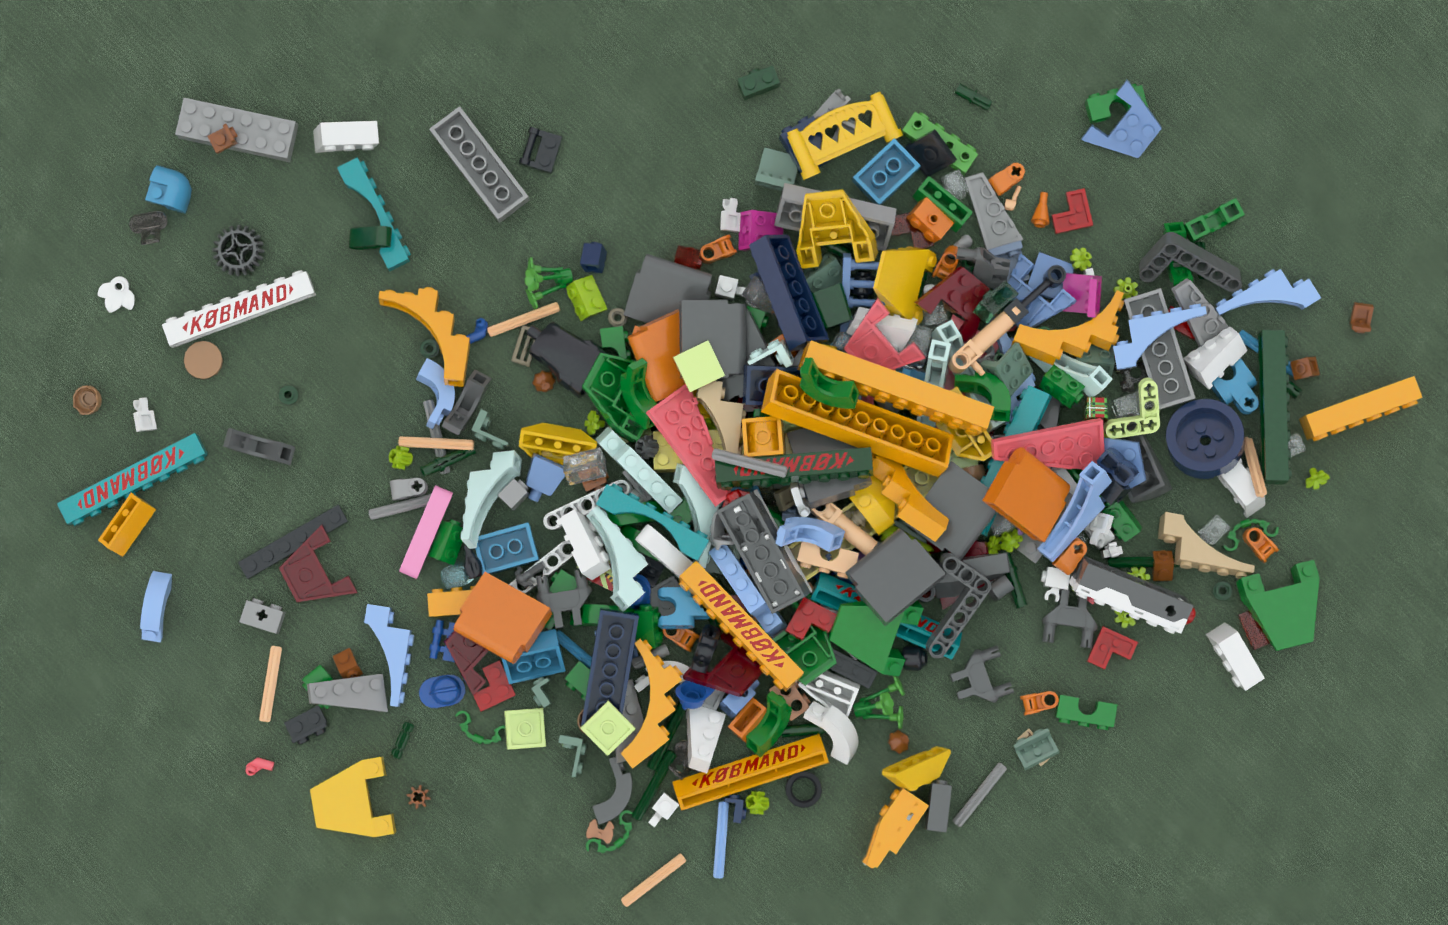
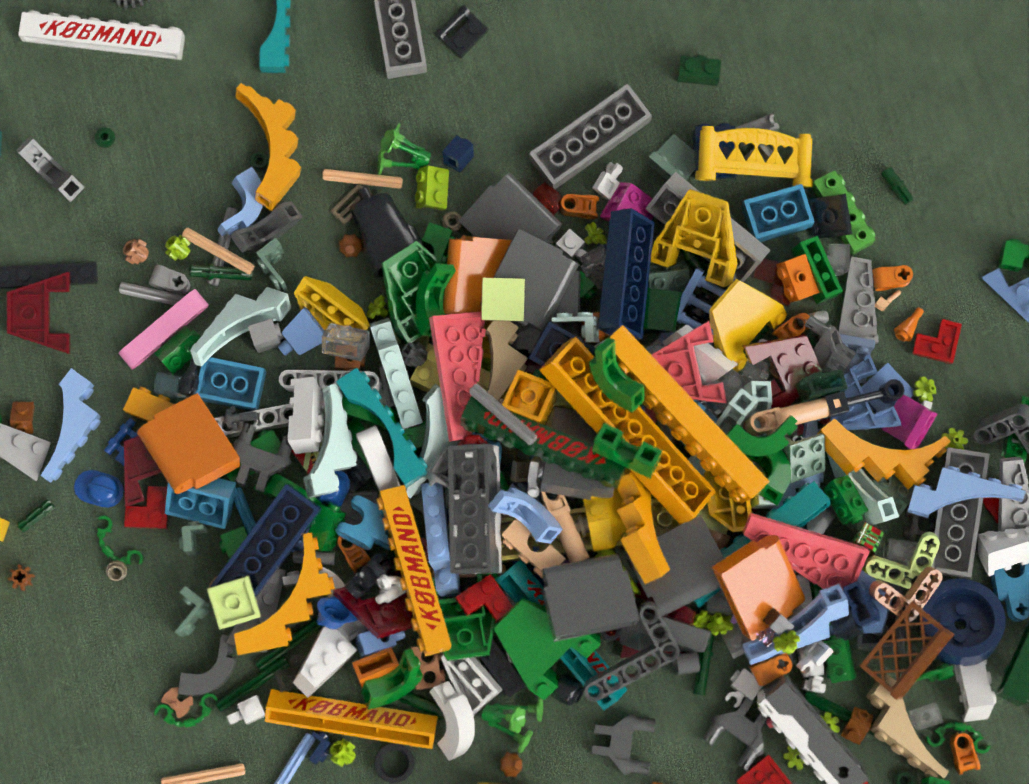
camera: 25 degrees right, 5 degrees down
(203, 360) = (44, 66): medium nougat tile -> none
(367, 478) = (135, 251): none -> nougat gear
(370, 237) = (258, 29): dark green beam -> none
(480, 330) = (316, 169): blue arm -> none
(497, 753) = (112, 574): none -> dark tan plate
(525, 728) = (157, 564): yellowish green tile -> none
(696, 187) = (590, 137): none -> light grey brick
(728, 651) = (390, 588): none -> white plant
(742, 268) = (594, 234): none -> lime plant
(881, 443) = (613, 446): none -> green arch
(972, 379) = (764, 445): none -> green arch
(1056, 518) = (776, 623): none -> piece
(1073, 529) = (786, 642): none -> lime plant
(1154, 442) = (904, 601): none -> nougat beam
(1189, 486) = (919, 664): none -> dark orange fence
(1210, 486) = (941, 673): none -> green plate
(1254, 467) = (995, 676): light nougat axle -> none

